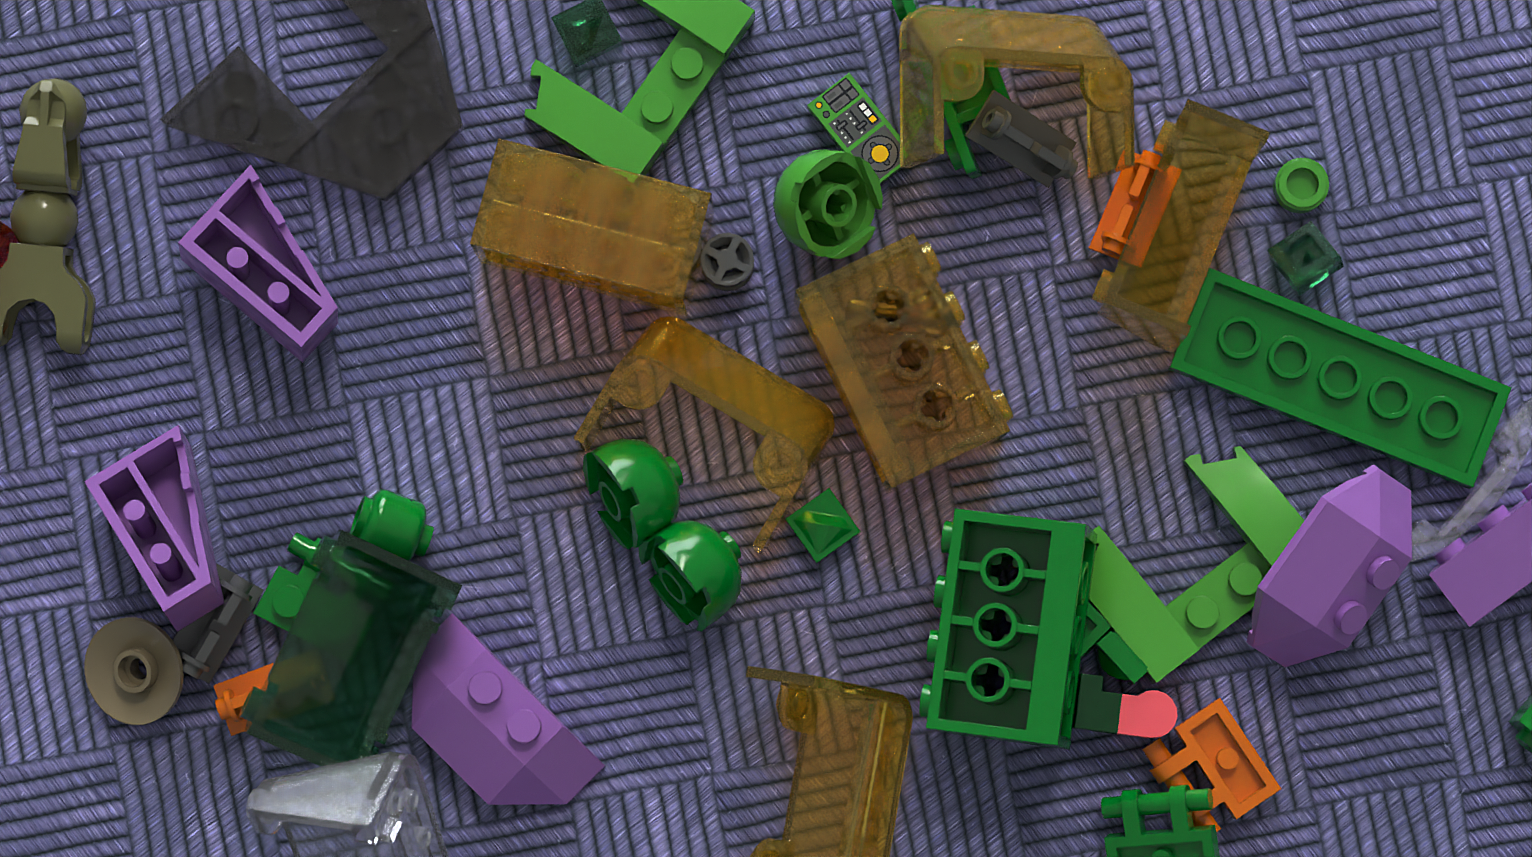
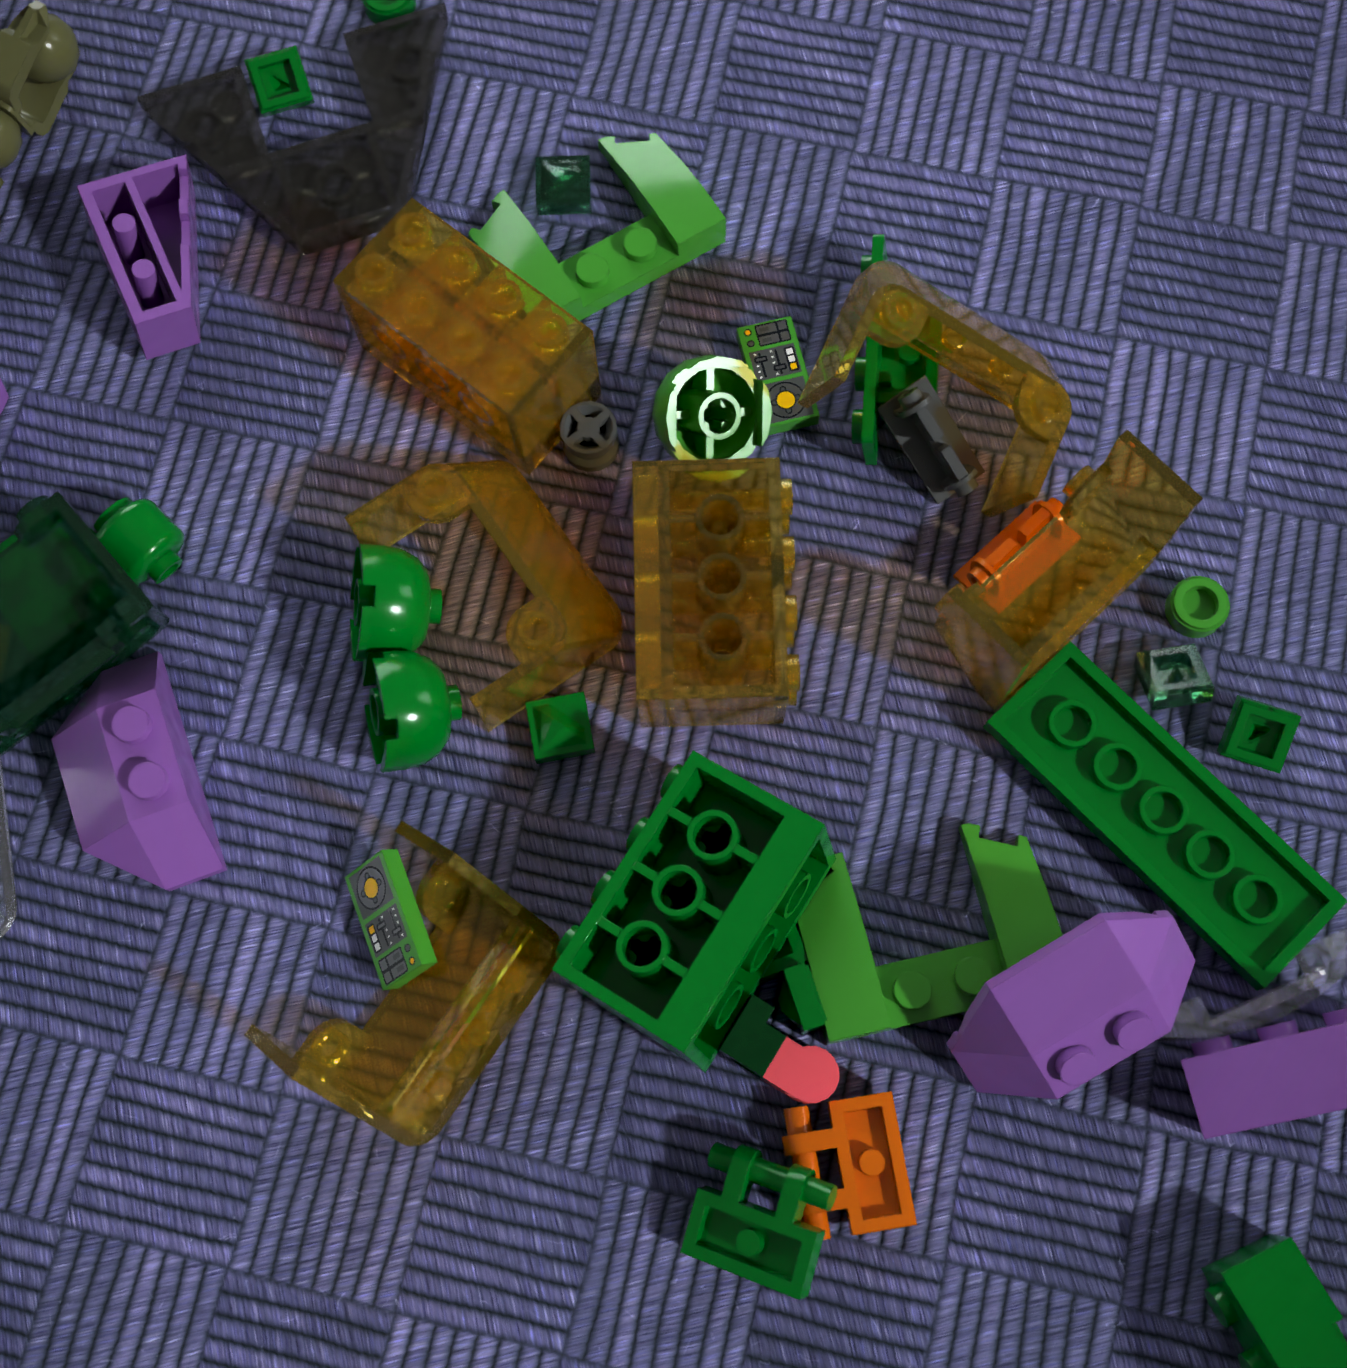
camera: 25 degrees right, 10 degrees down
(278, 42) = (279, 81): none -> green tile
(765, 744) = (390, 919): none -> tile
(1391, 276) = (1258, 734): none -> green tile

